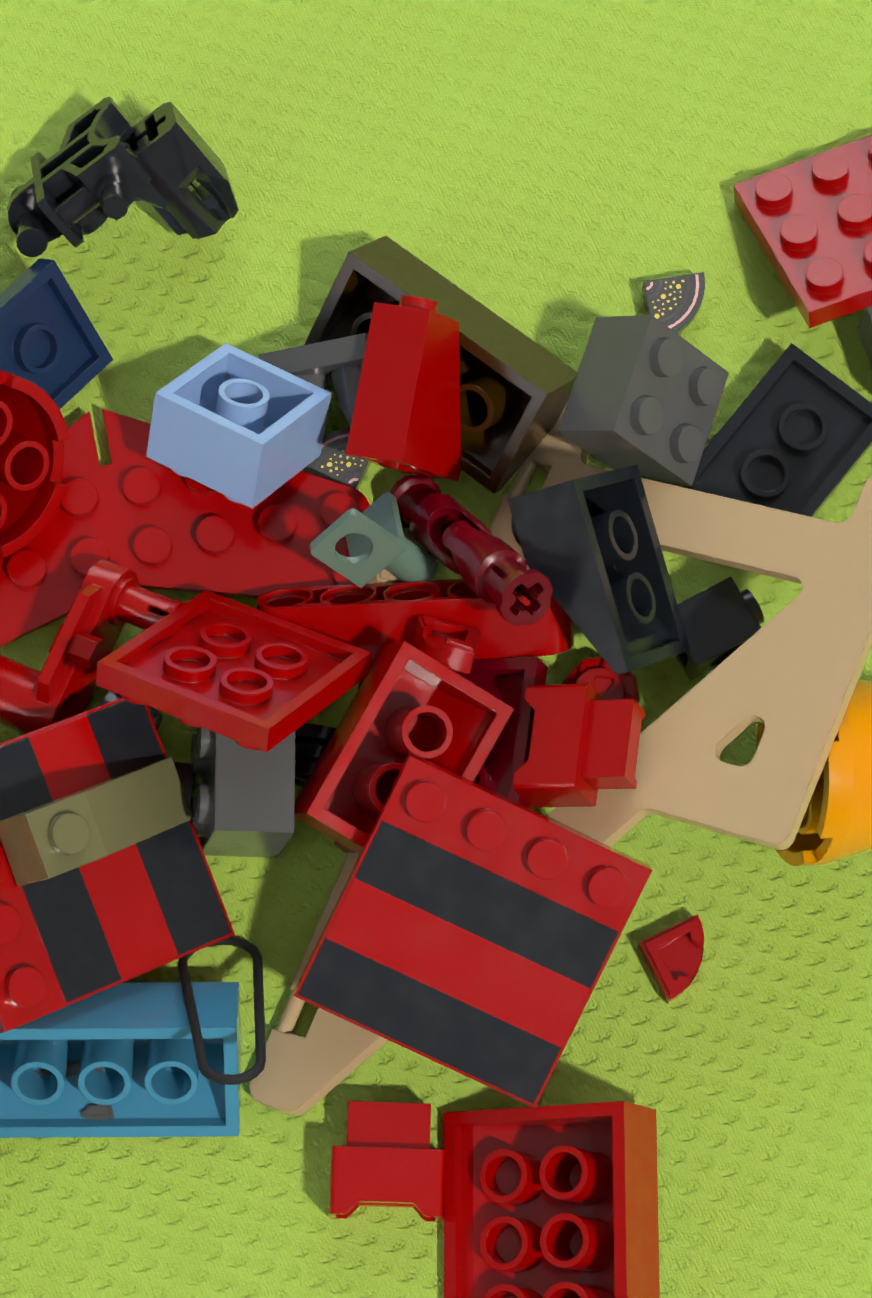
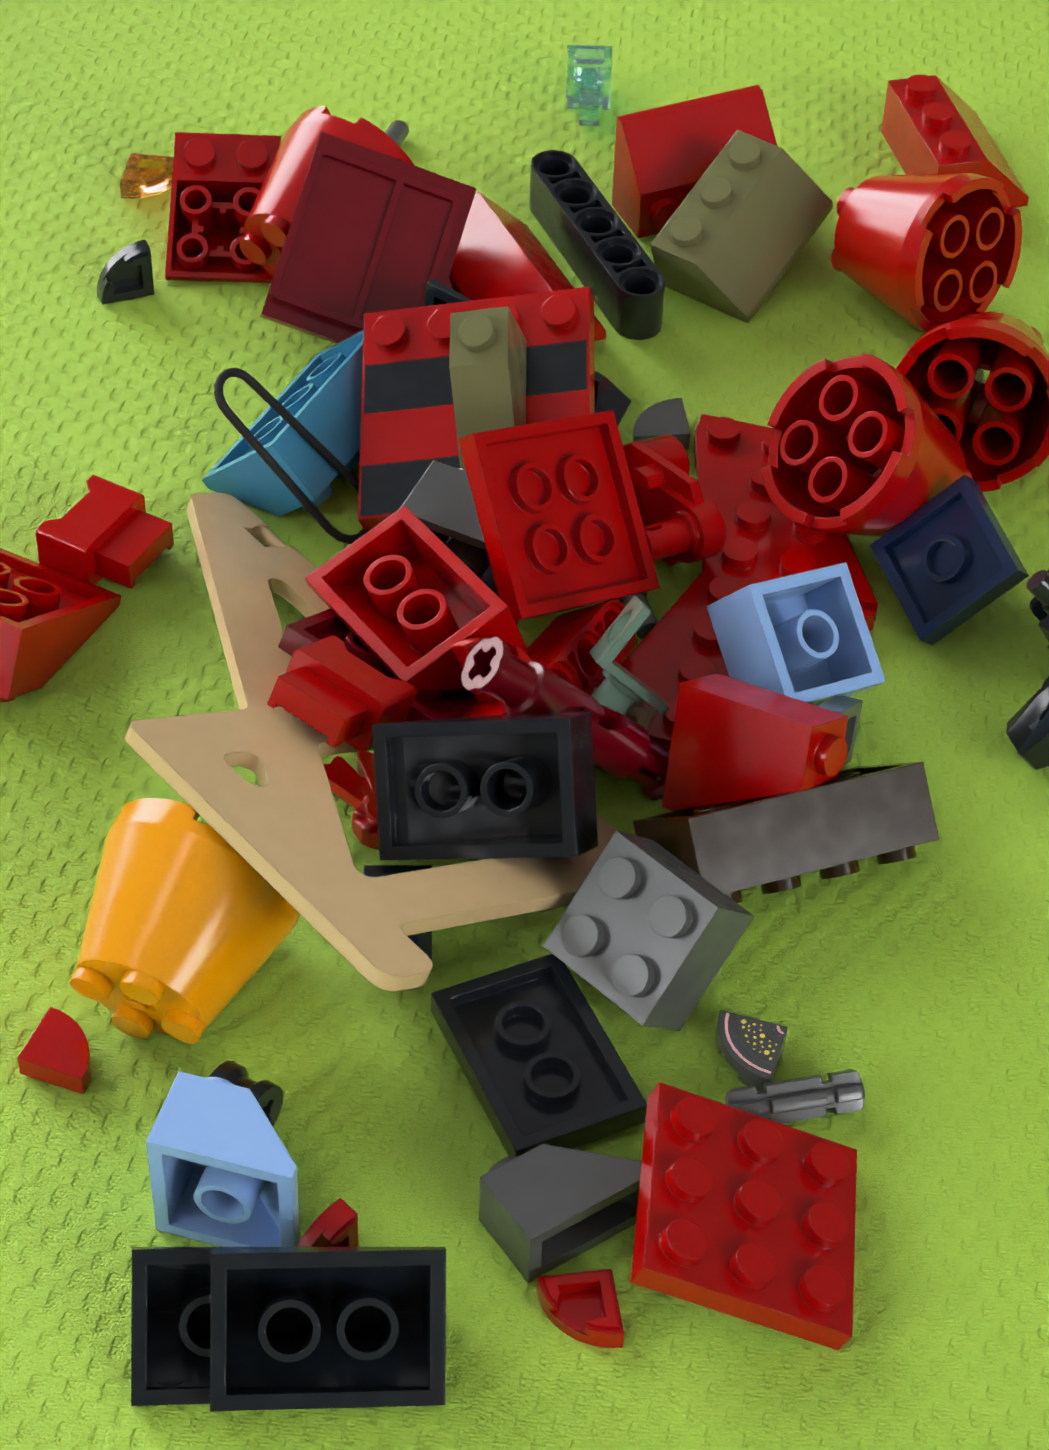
camera: 120 degrees right, 30 degrees down
(472, 930) = (236, 590): plate -> none
(675, 956) = (122, 780): red tile -> none
(706, 251) = (801, 1097): none -> dark grey axle

